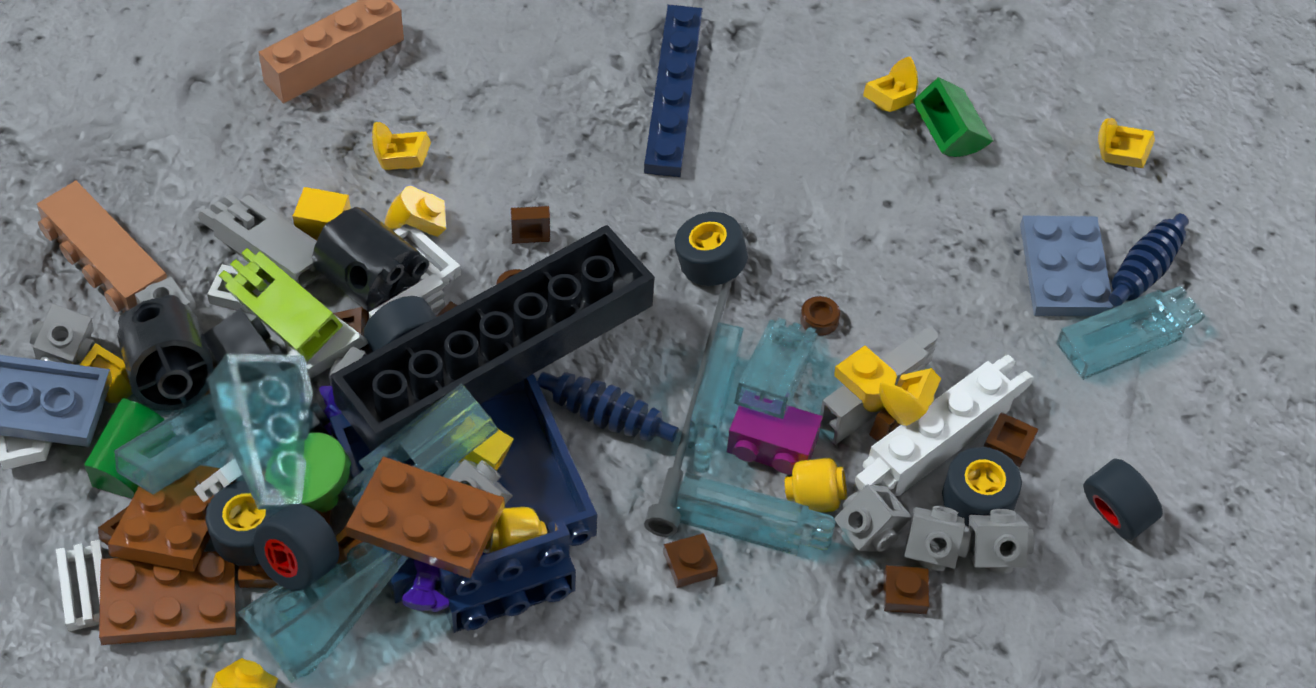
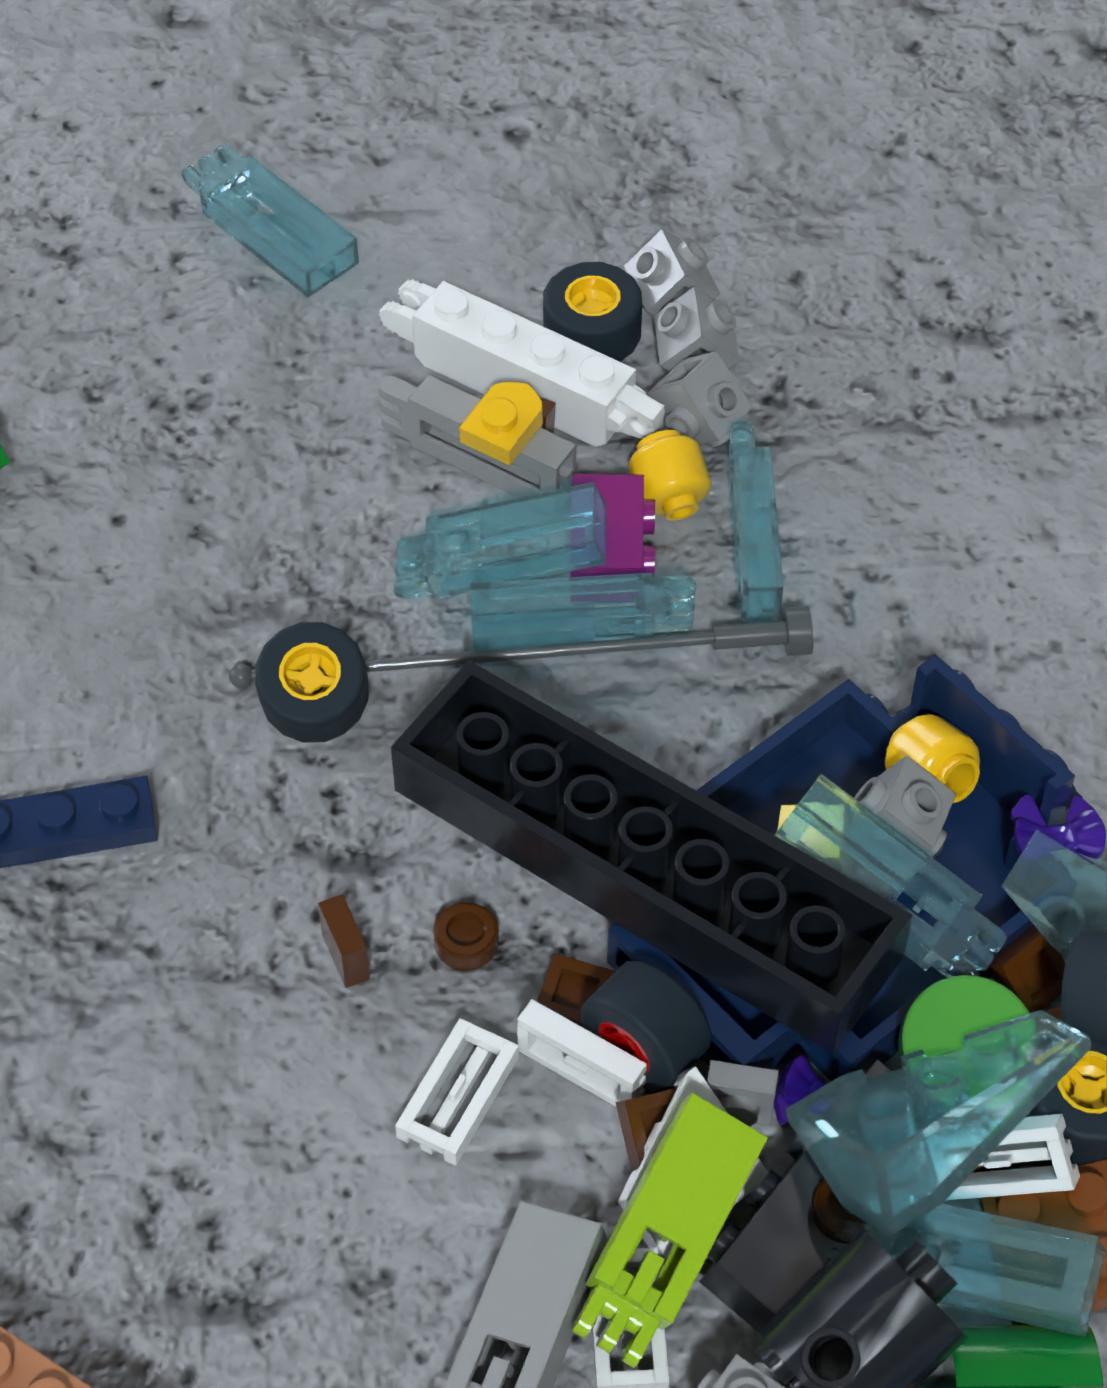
camera: 105 degrees left, 0 degrees up
(317, 209) = (441, 1256): yellow brick -> none
(367, 258) = (530, 1122): black cylinder -> none
(400, 149) = (243, 1192): yellow plate -> none
(417, 210) = (378, 1119): yellow plate -> none
(425, 517) = (1004, 819): dark orange plate -> none
(607, 406) = (650, 714): dark blue piece -> none
(690, 560) = (836, 593): reddish brown plate -> none
(820, 314) = (367, 547): reddish brown tile -> none
(906, 589) = (768, 370): reddish brown plate -> none
(910, 396) = (520, 361): yellow plate -> none
(1011, 438) = (506, 292): reddish brown plate -> none
(1065, 265) = (173, 301): sand blue plate -> none
(1123, 498) = (554, 176): black wheel -> none
(1148, 259) = (144, 209): dark blue piece -> none

